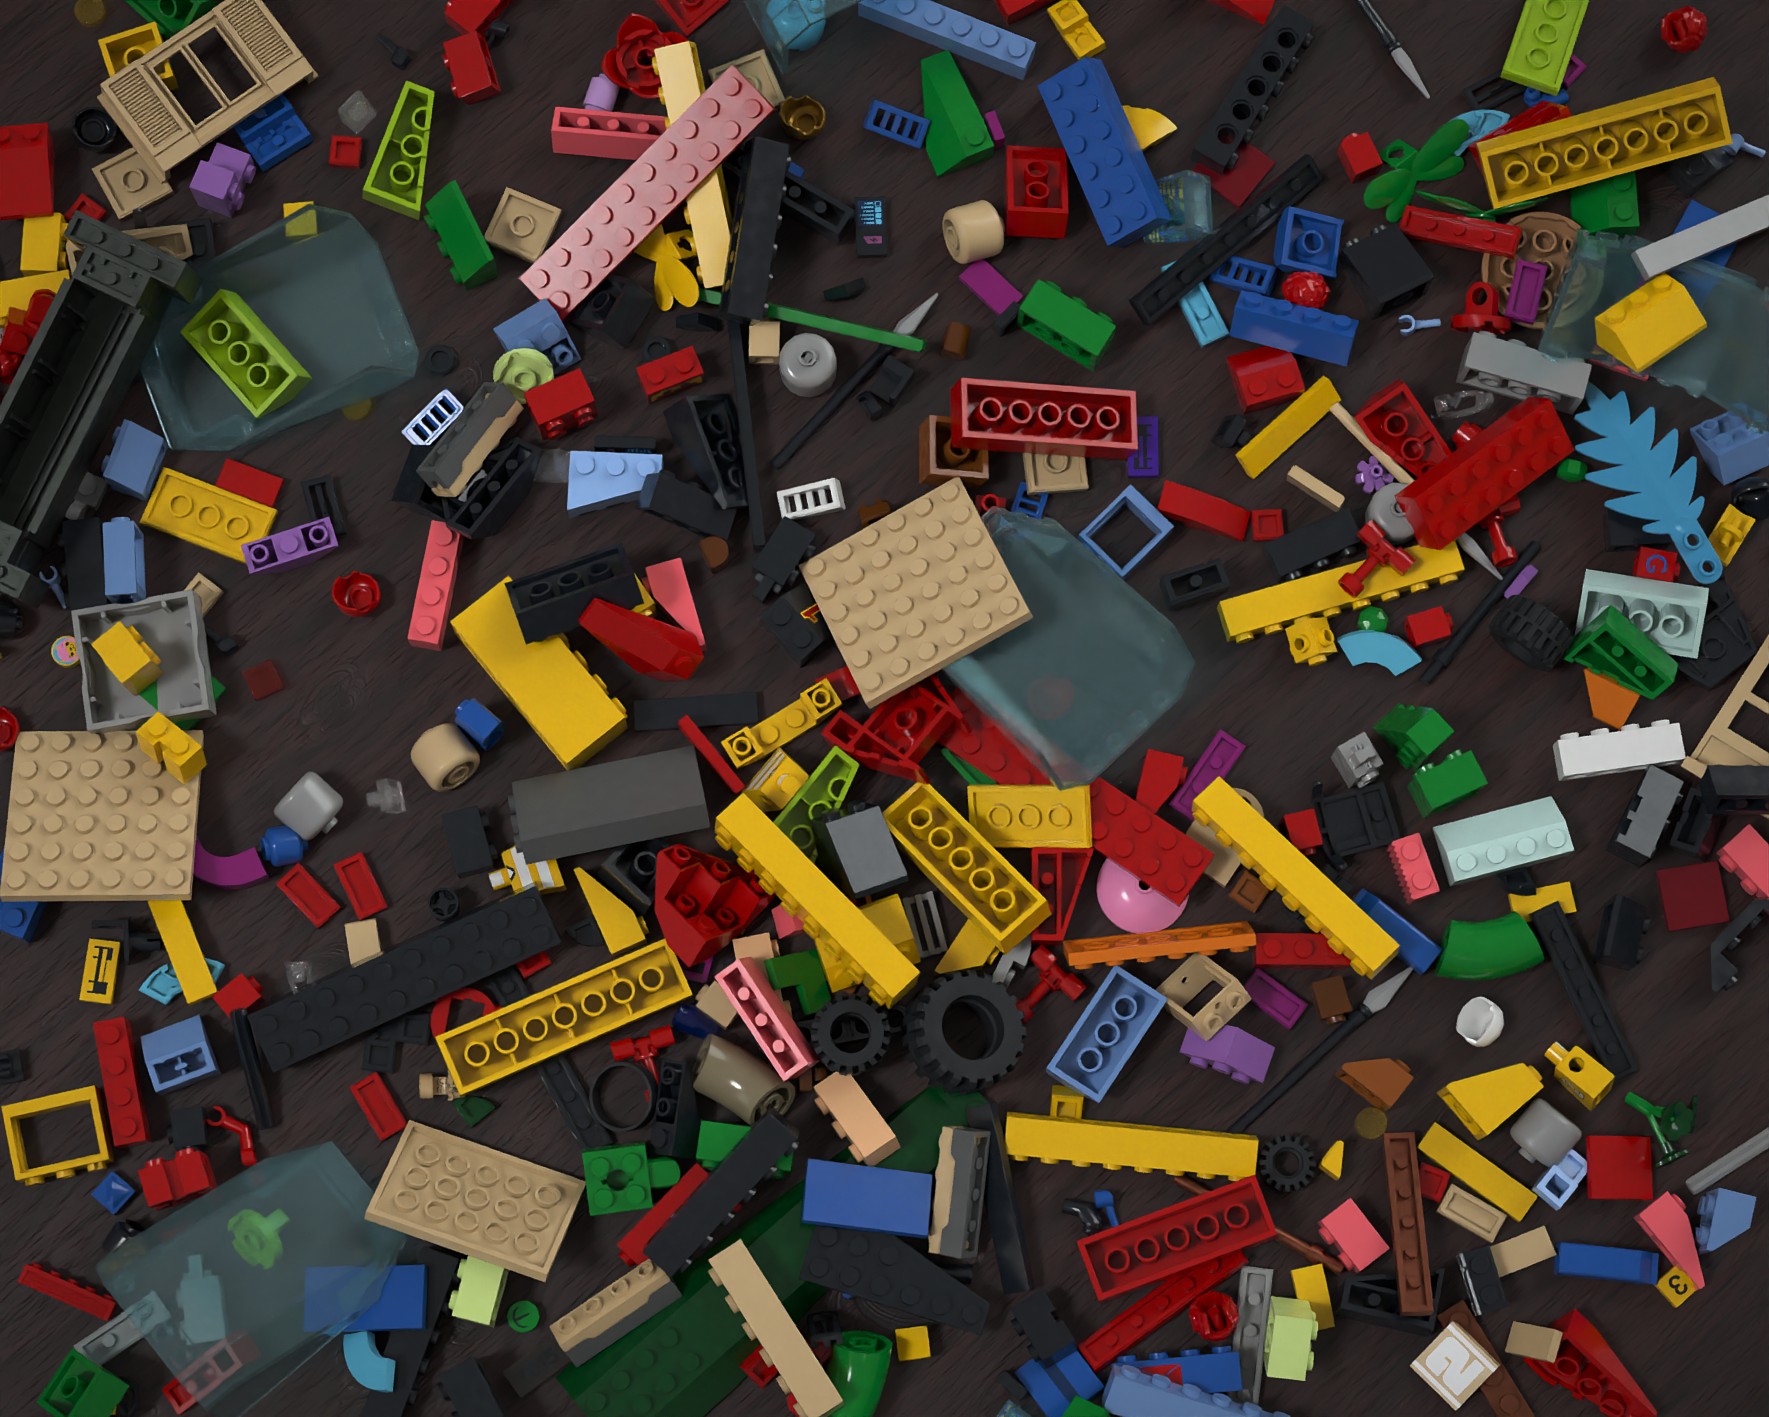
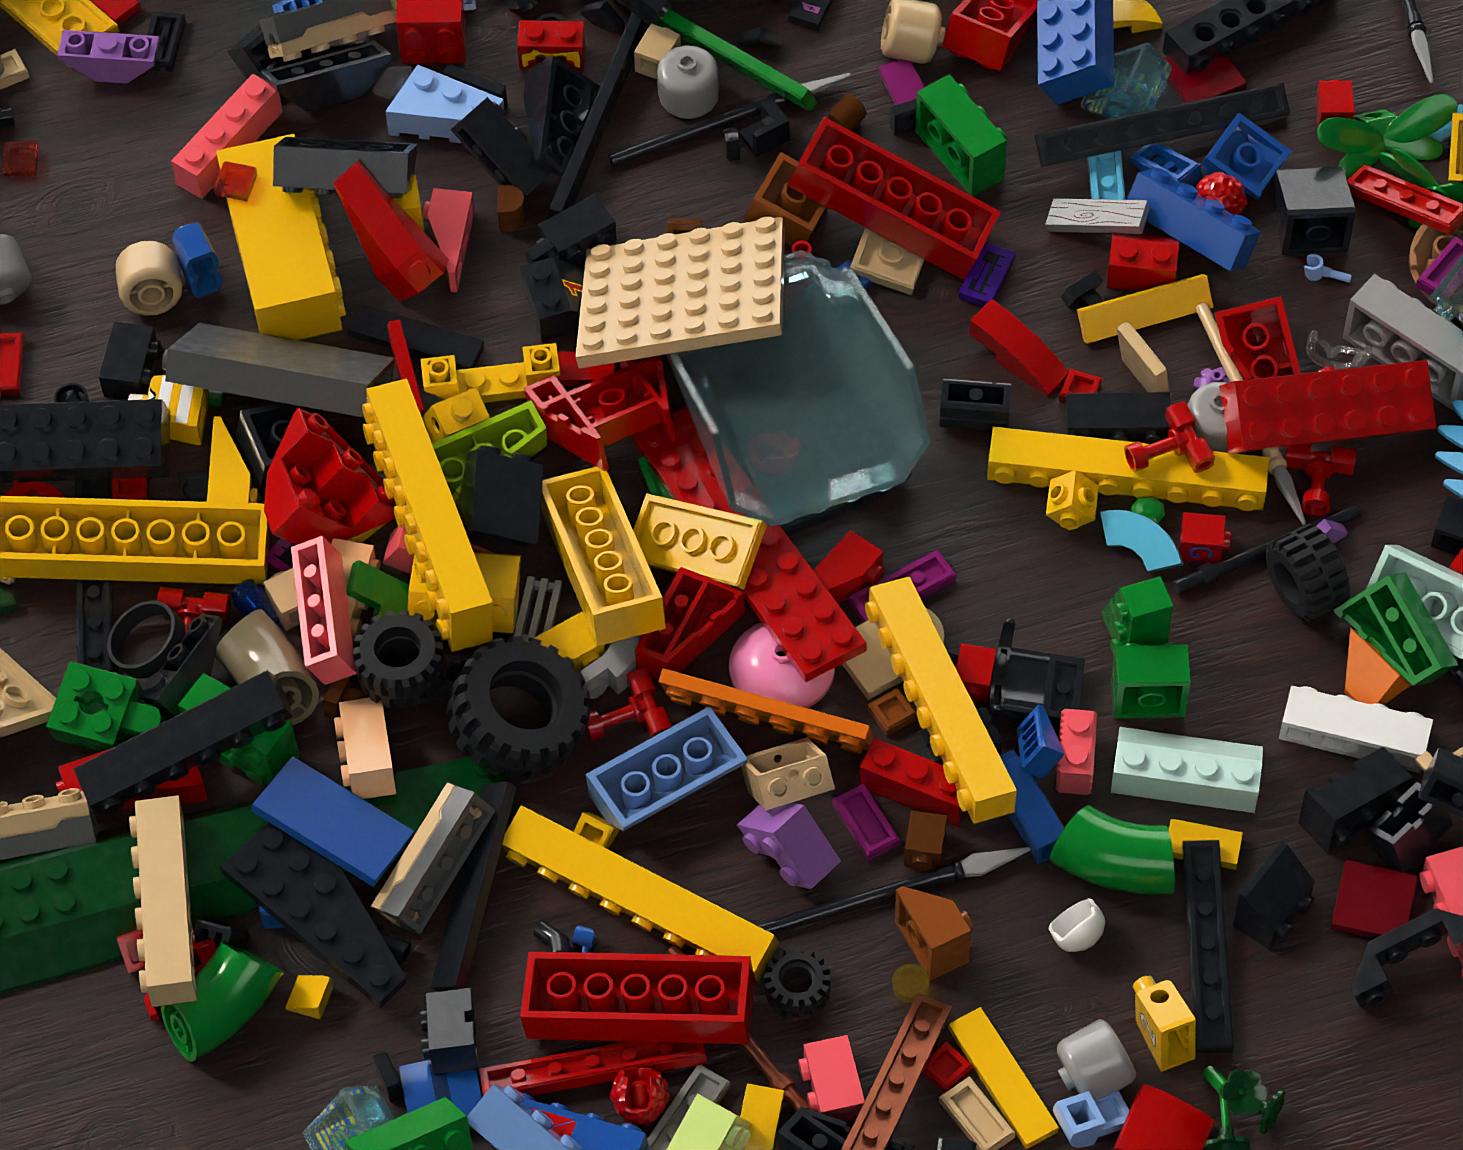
camera: 30 degrees right, 20 degrees down
(356, 594) = (147, 117): red hair -> none
(388, 796) = (76, 294): clear tile -> none
(485, 647) = (235, 181): none -> clear red tile
(813, 510) = (651, 206): white slope -> none
(1145, 512) = (930, 312): medium blue window -> none
(1212, 354) = (1097, 216): none -> tile
(1332, 1161) = (848, 997): yellow slope -> none
(1357, 761) = (1064, 621): light grey hinge -> none
(1398, 883) = (1038, 743): none -> blue slope
(1483, 316) = (1398, 273): red tile -> none
(1491, 1097) = (1052, 996): yellow slope -> none
(1517, 882) = (1184, 810): black tile -> none
(1571, 470) = (1424, 451): green tile -> none

